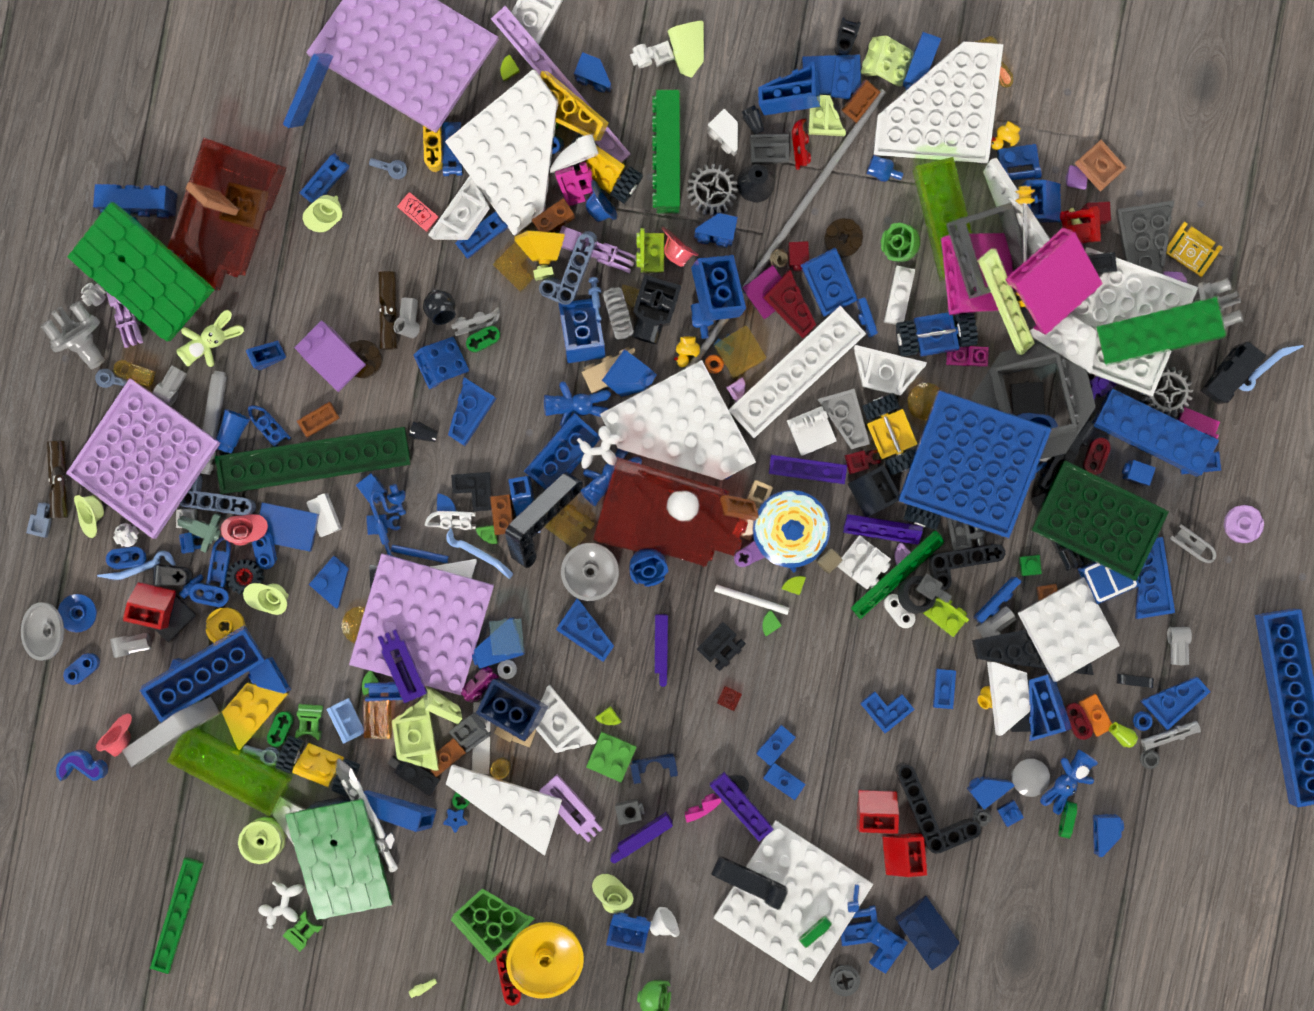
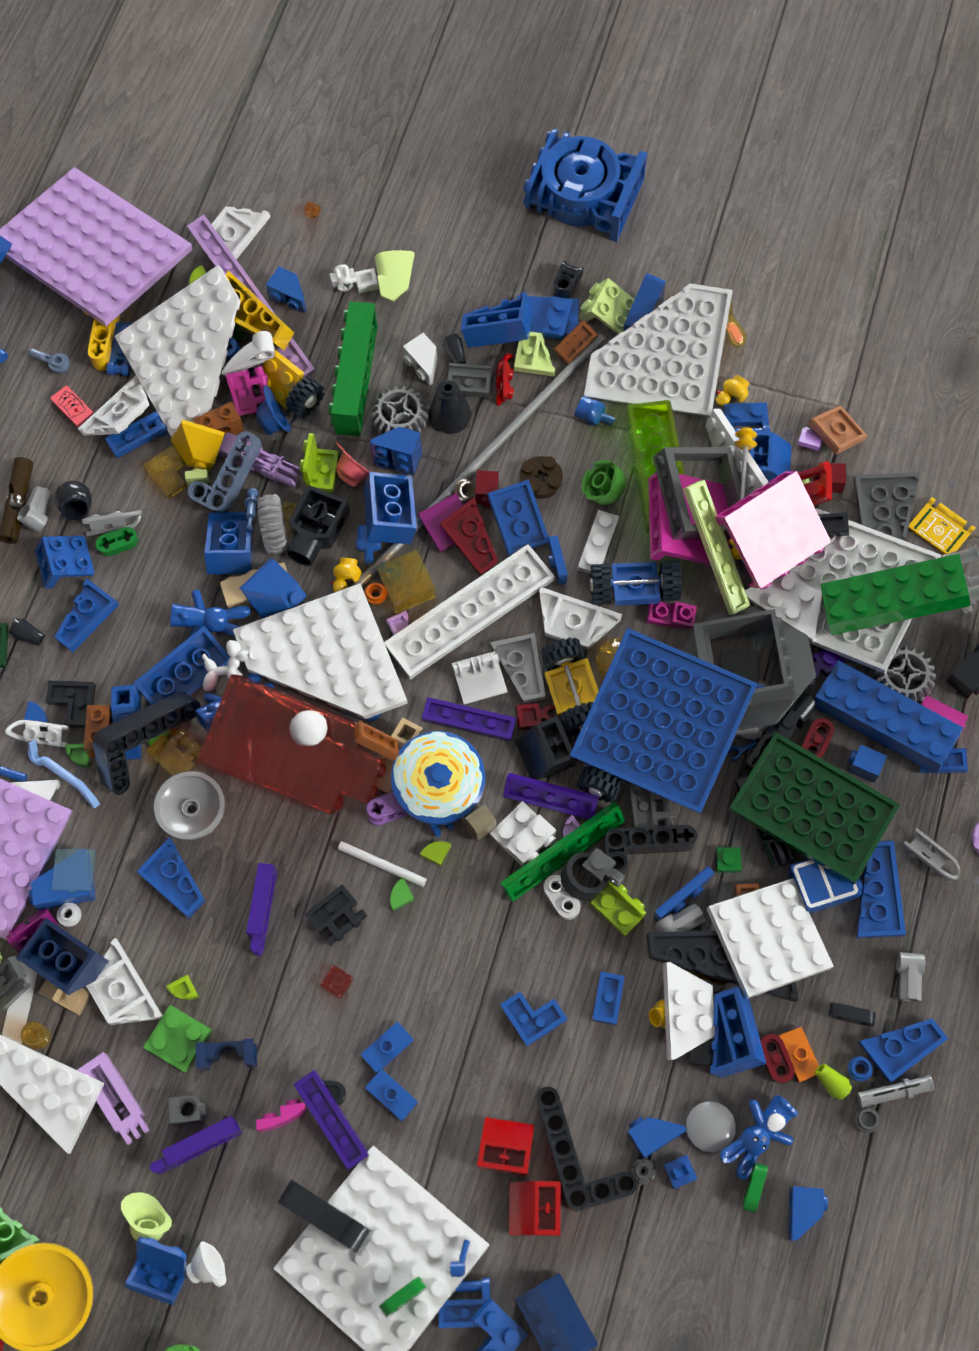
camera: 10 degrees right, 20 degrees down
(648, 567) = (260, 807): blue cylinder -> none

